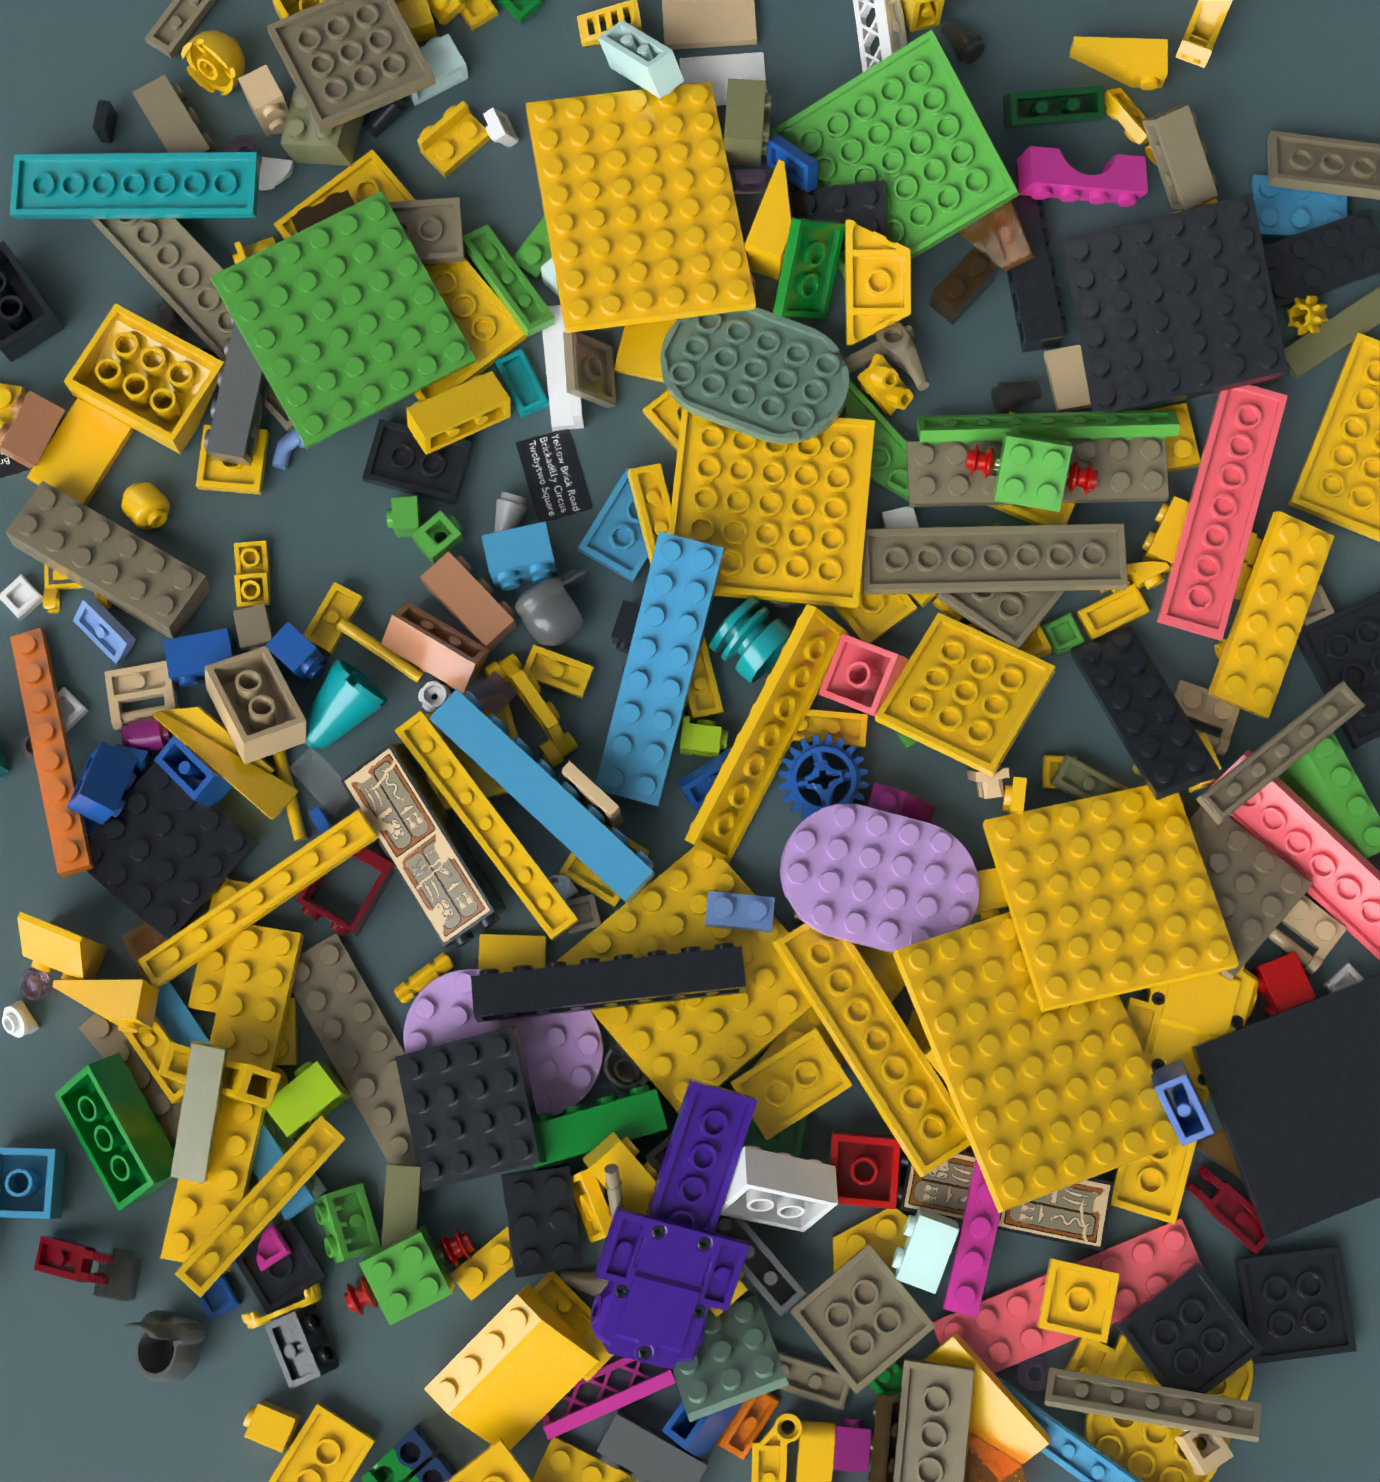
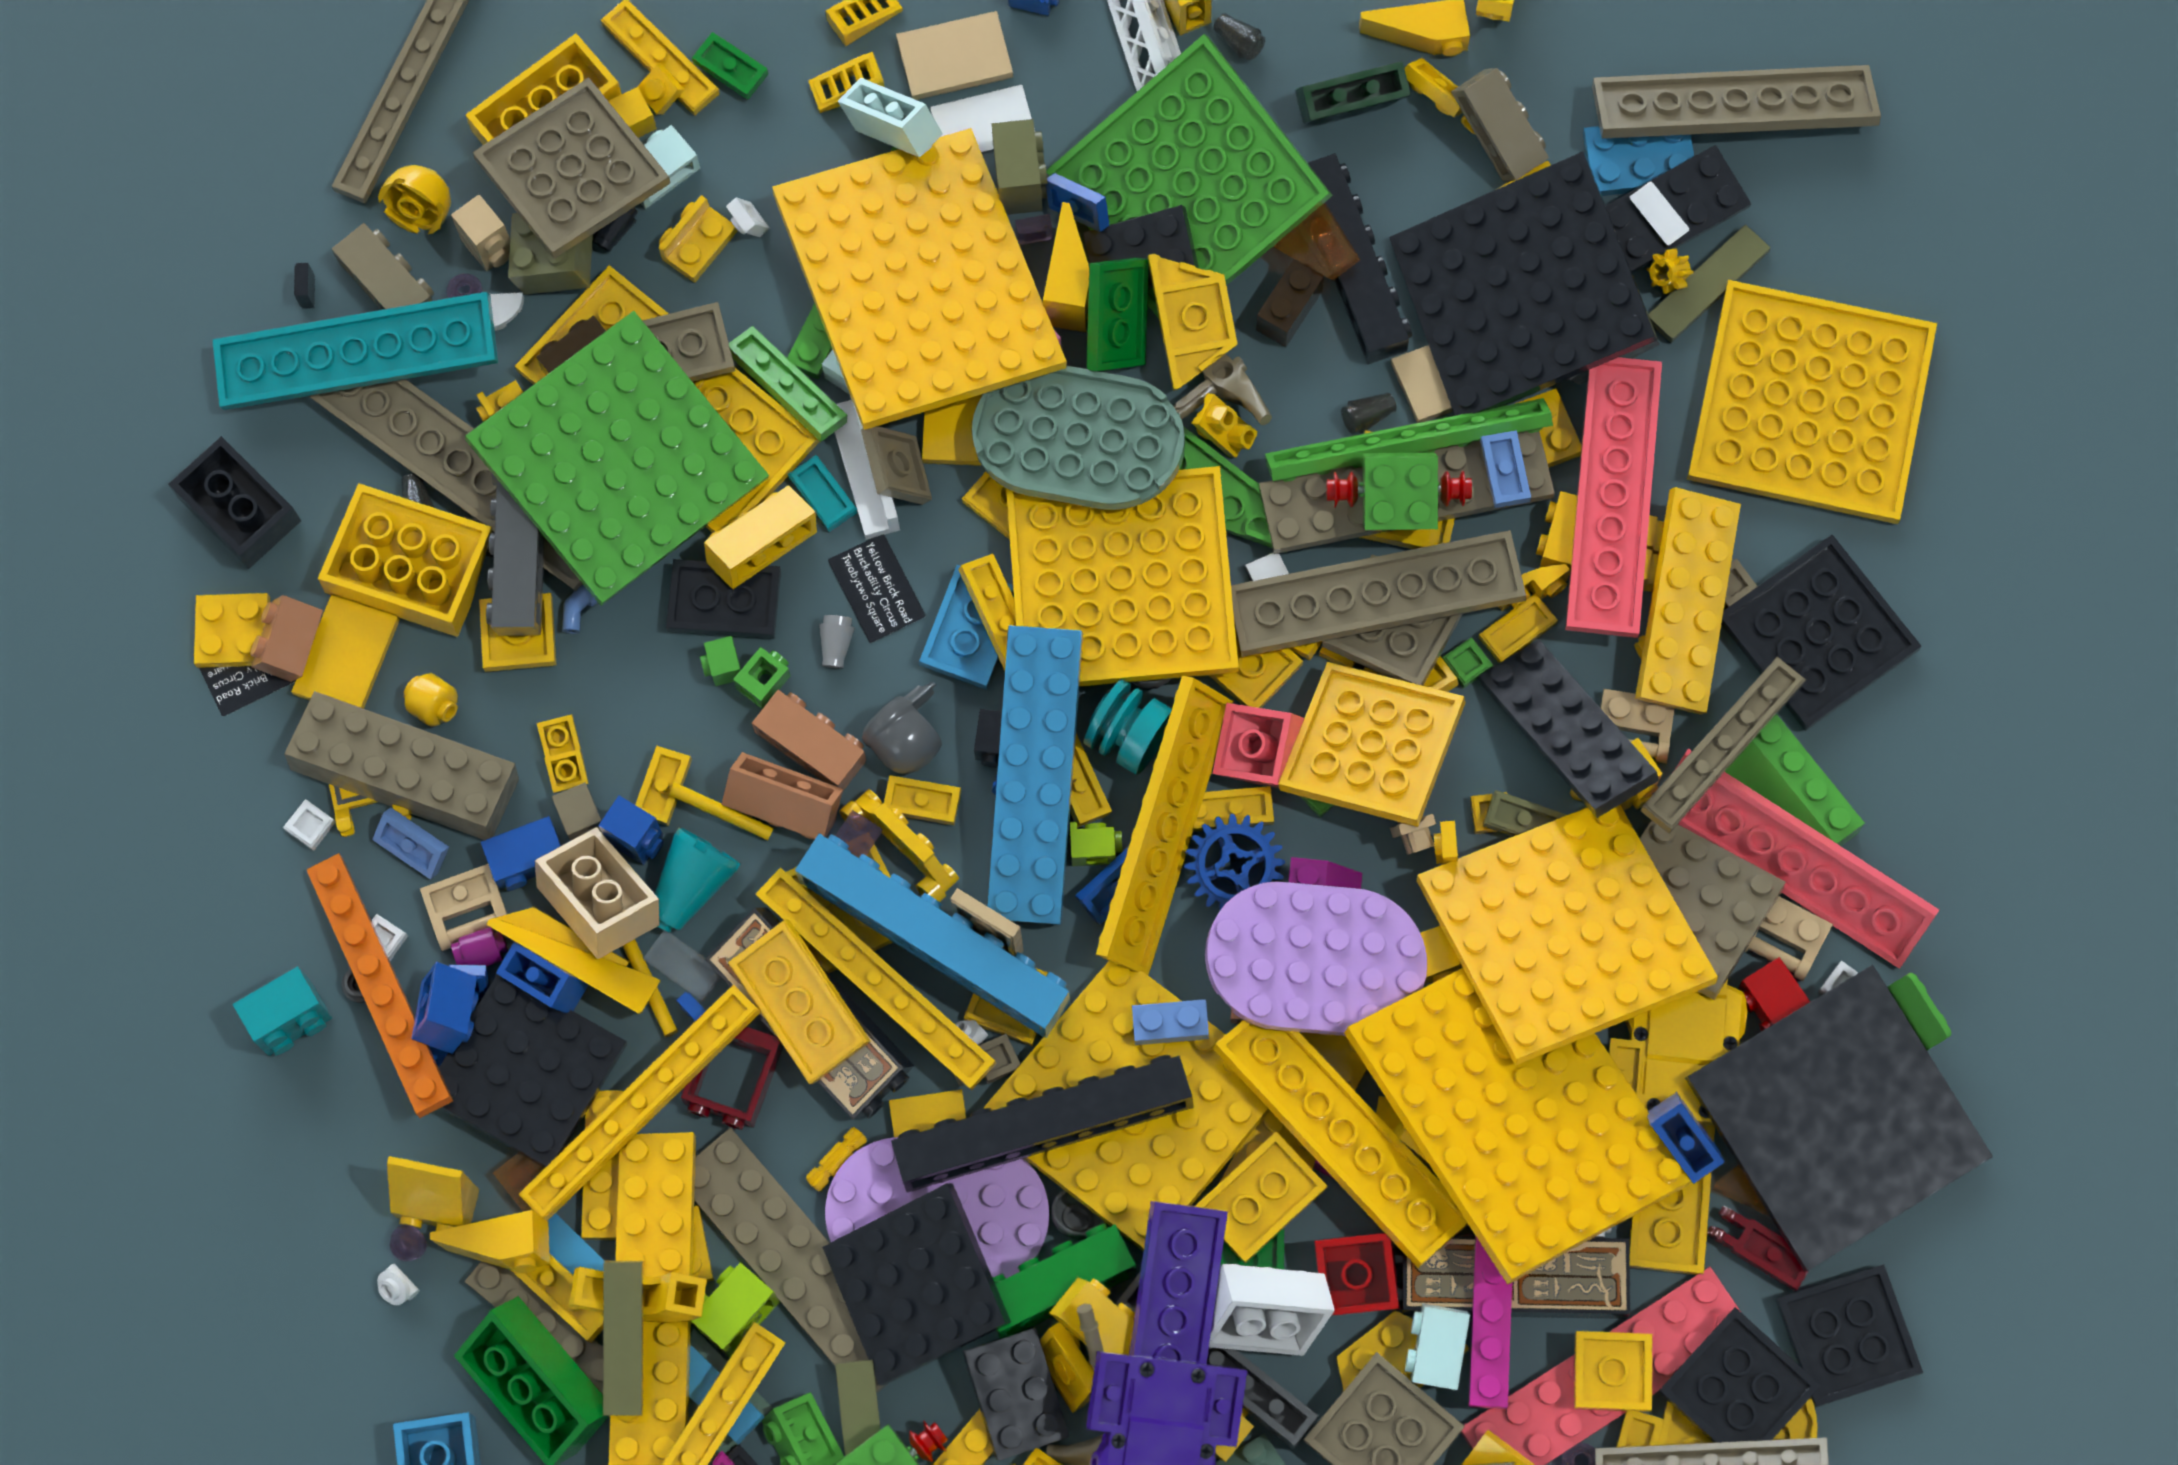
camera: 10 degrees left, 5 degrees down
(414, 834) = (799, 1001): none -> yellow tile
(425, 695) = (783, 845): white plate -> none
(519, 556) = (857, 681): dark azure brick -> none
(1046, 174) = (1358, 168): dark pink arch -> none
(1129, 468) = (1505, 469): none -> medium blue plate
(1308, 262) = (1659, 213): none -> white sticker

